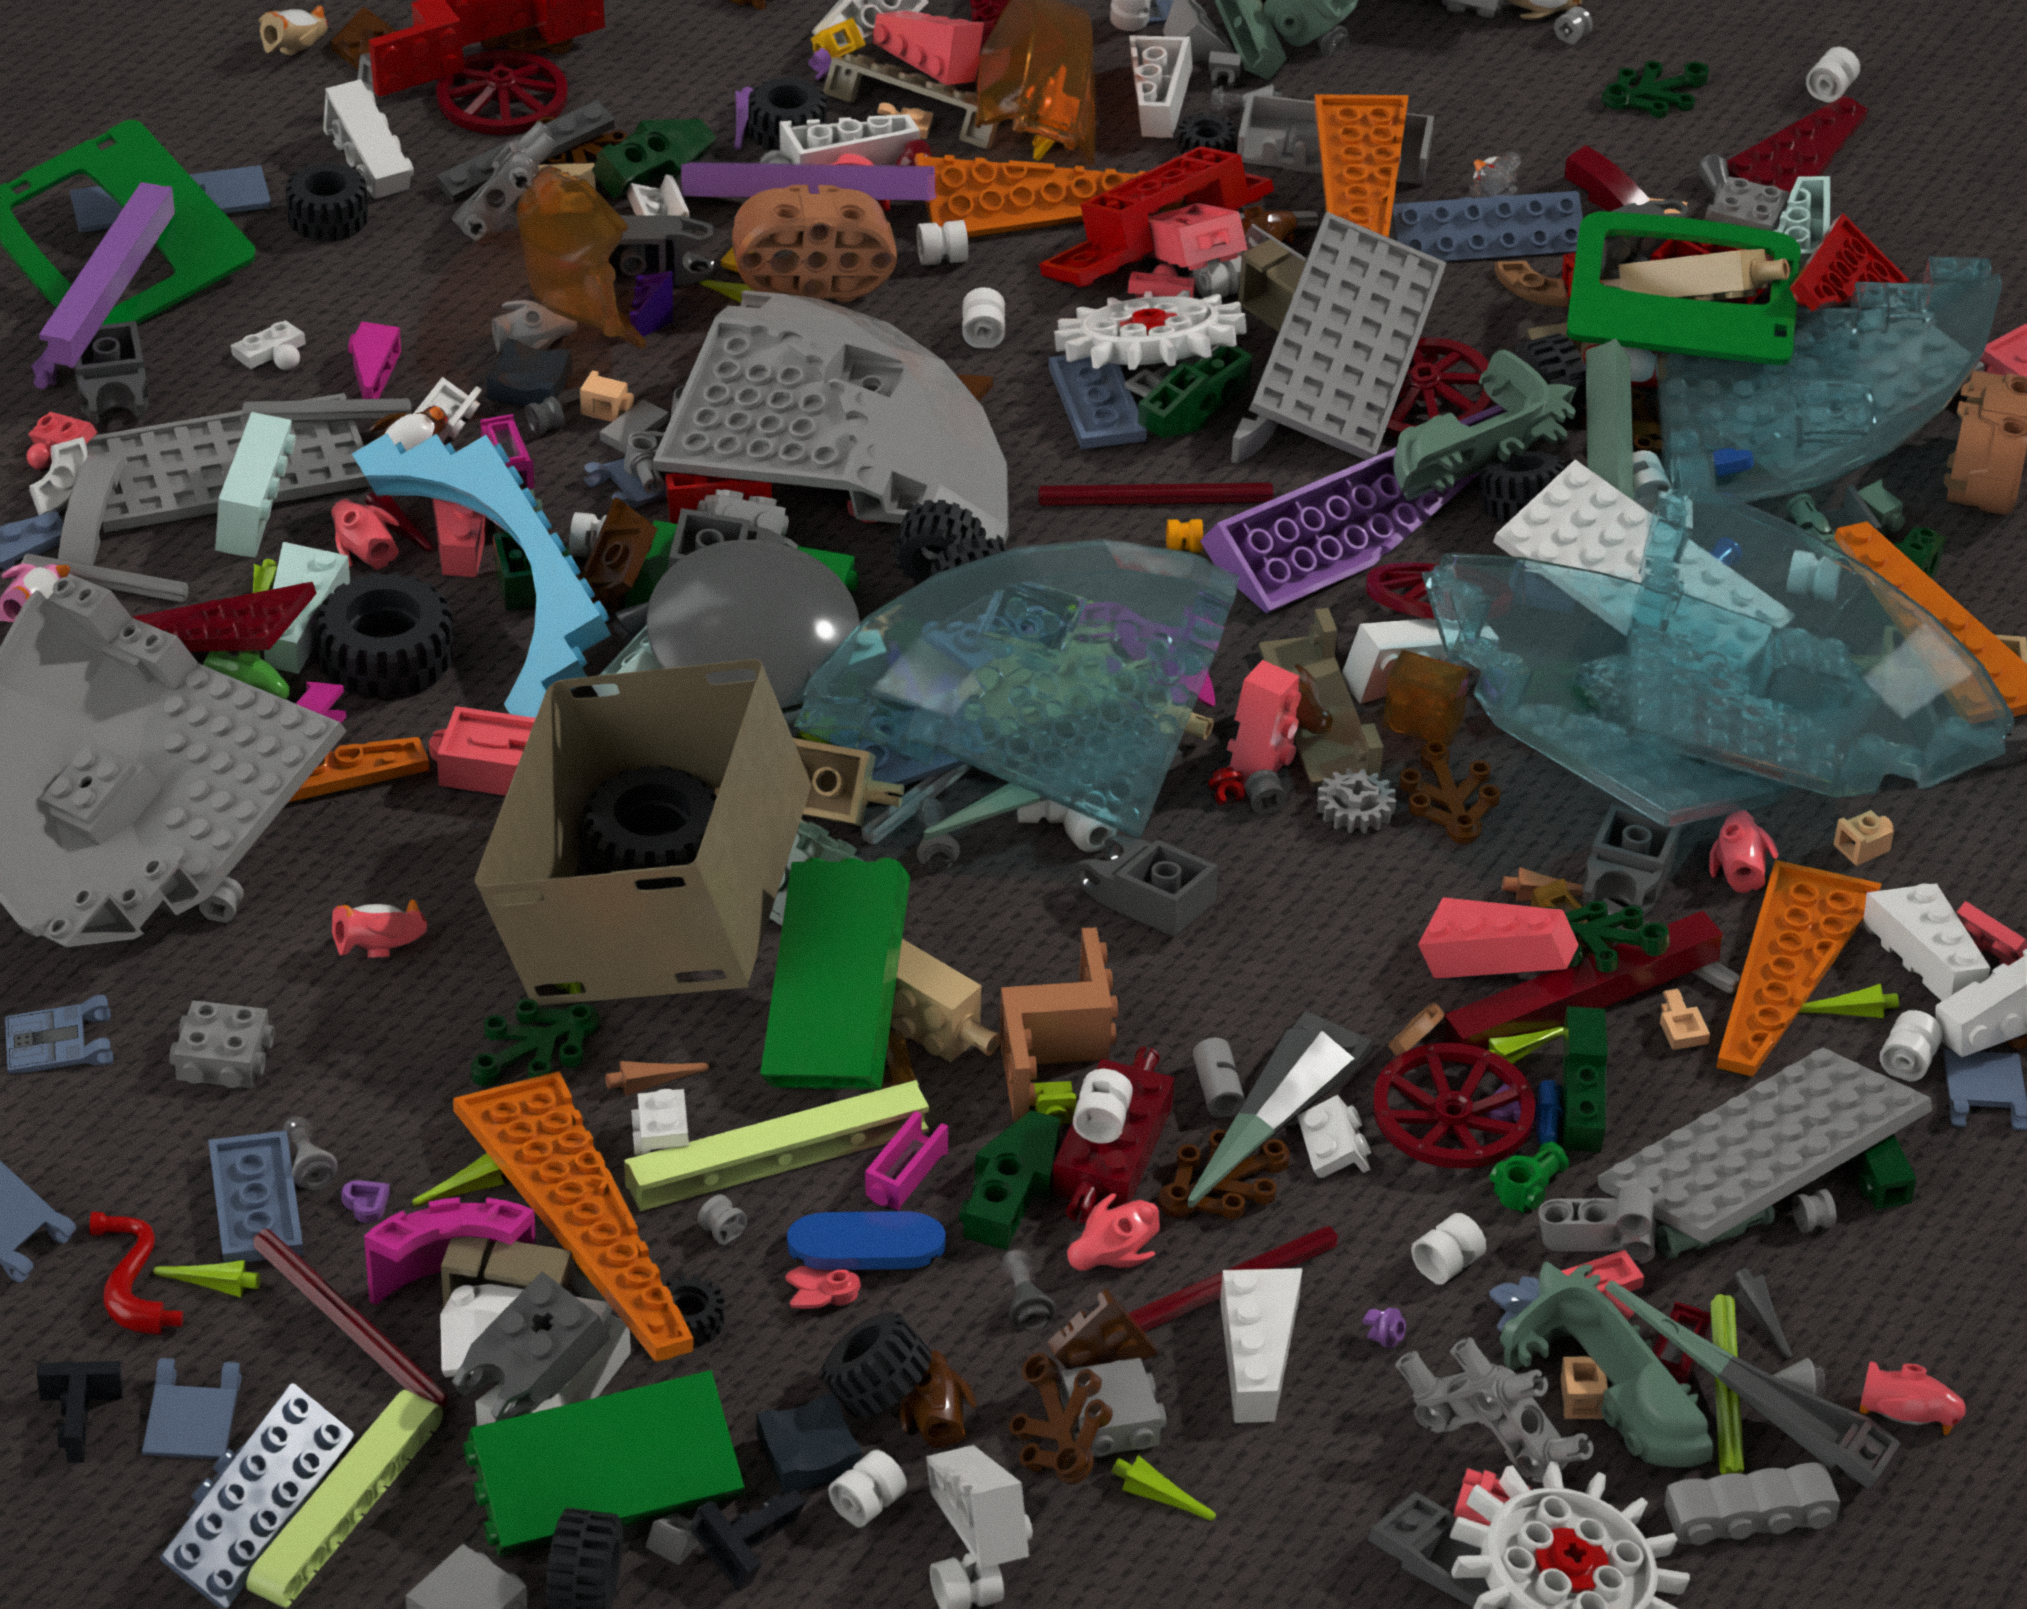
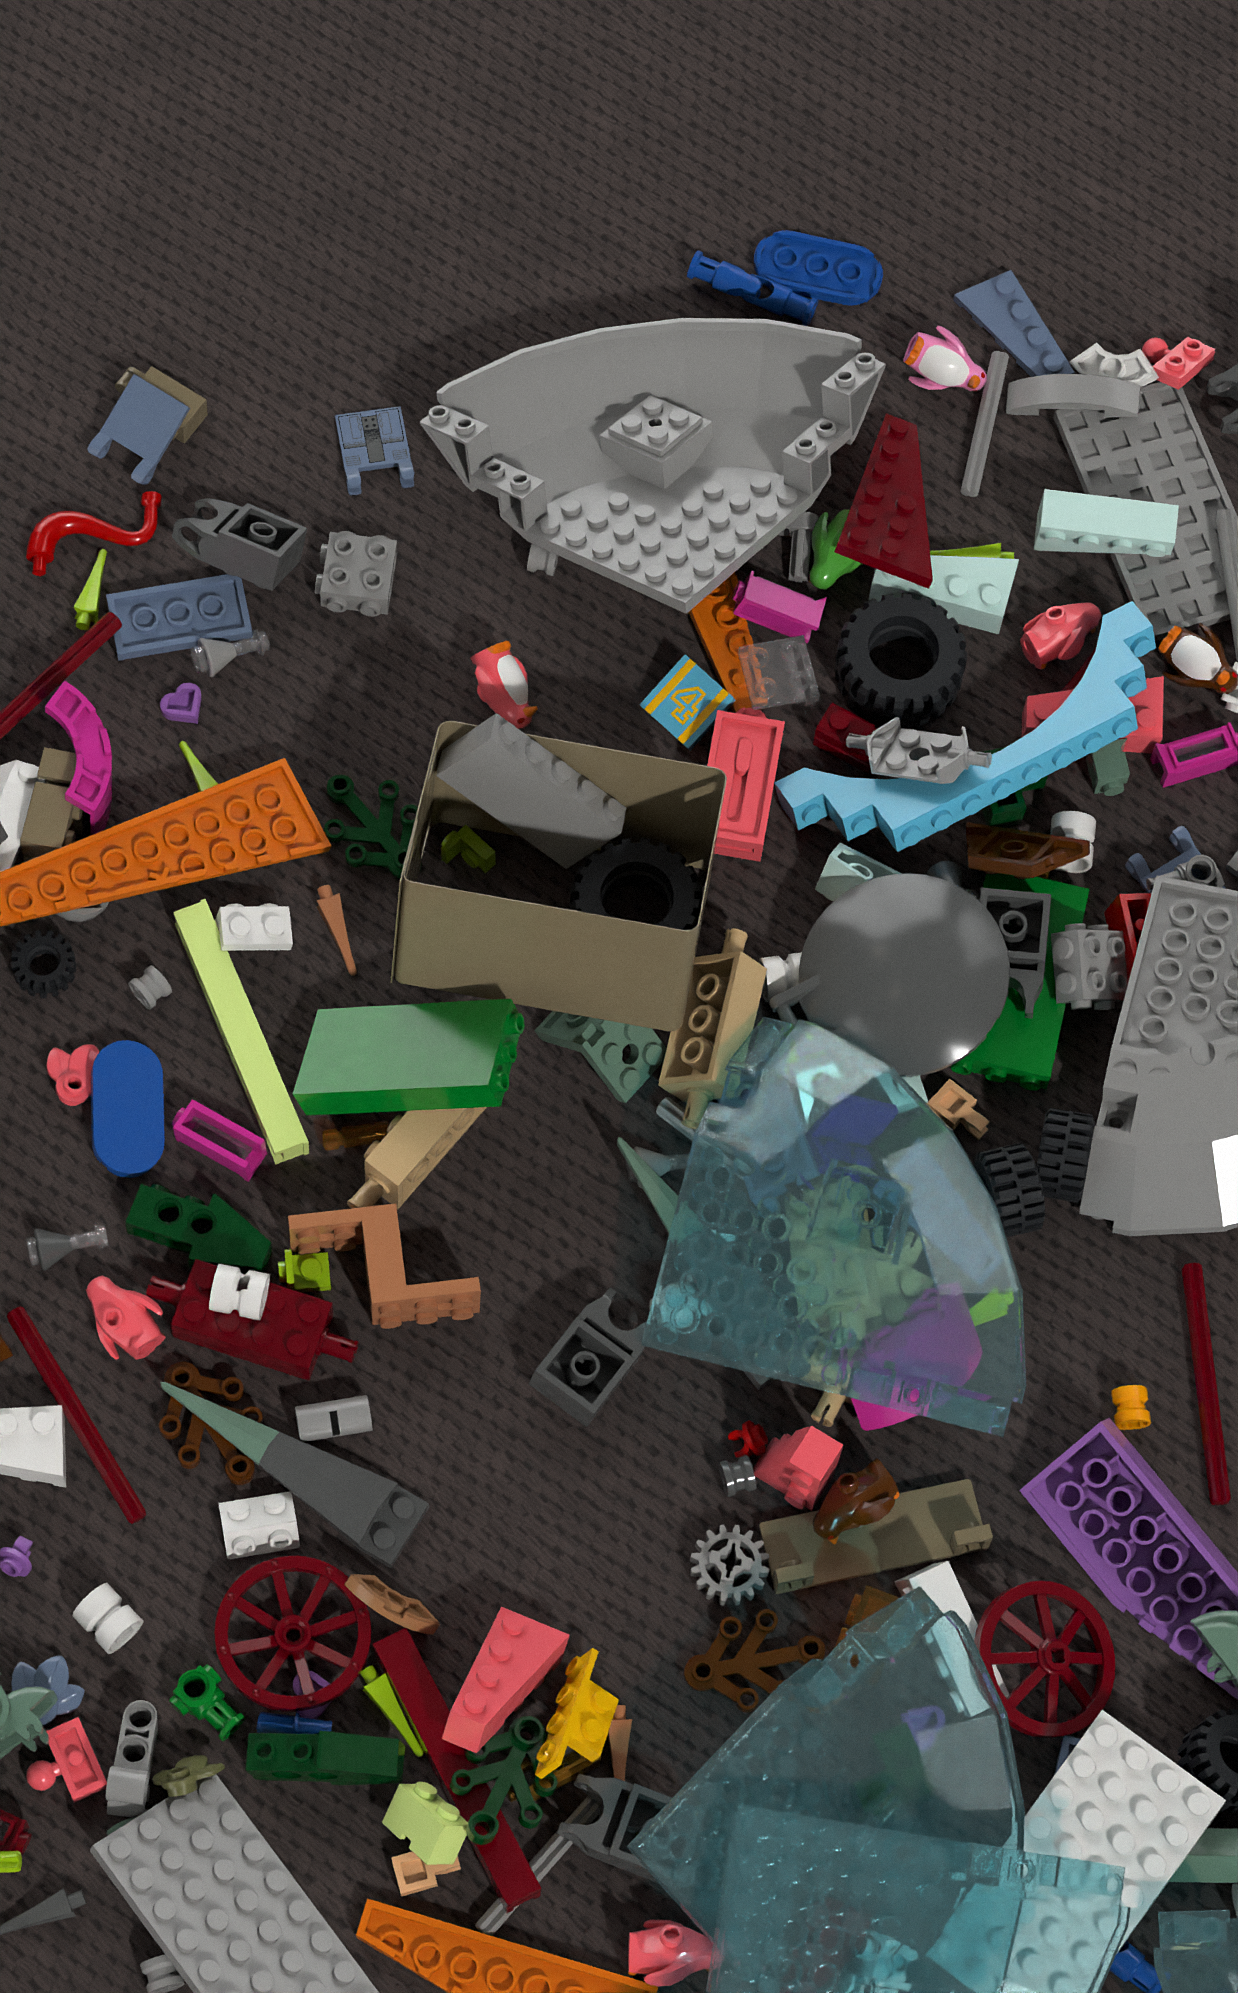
camera: 85 degrees right, 25 degrees up
(177, 1123) = (244, 541): none -> dark grey brick
(392, 716) = (779, 674): none -> clear bracket
(412, 796) = (687, 702): none -> medium azure tile
(468, 677) = (833, 732): none -> dark red brick
(520, 571) = (895, 749): none -> light grey plate
(539, 845) = (531, 791): none -> light grey brick
(1537, 887) = (580, 1718): none -> yellow bracket
(1611, 1176) = (183, 1777): none -> olive plate
(1639, 1000) = (427, 1821): none -> yellowish green brick

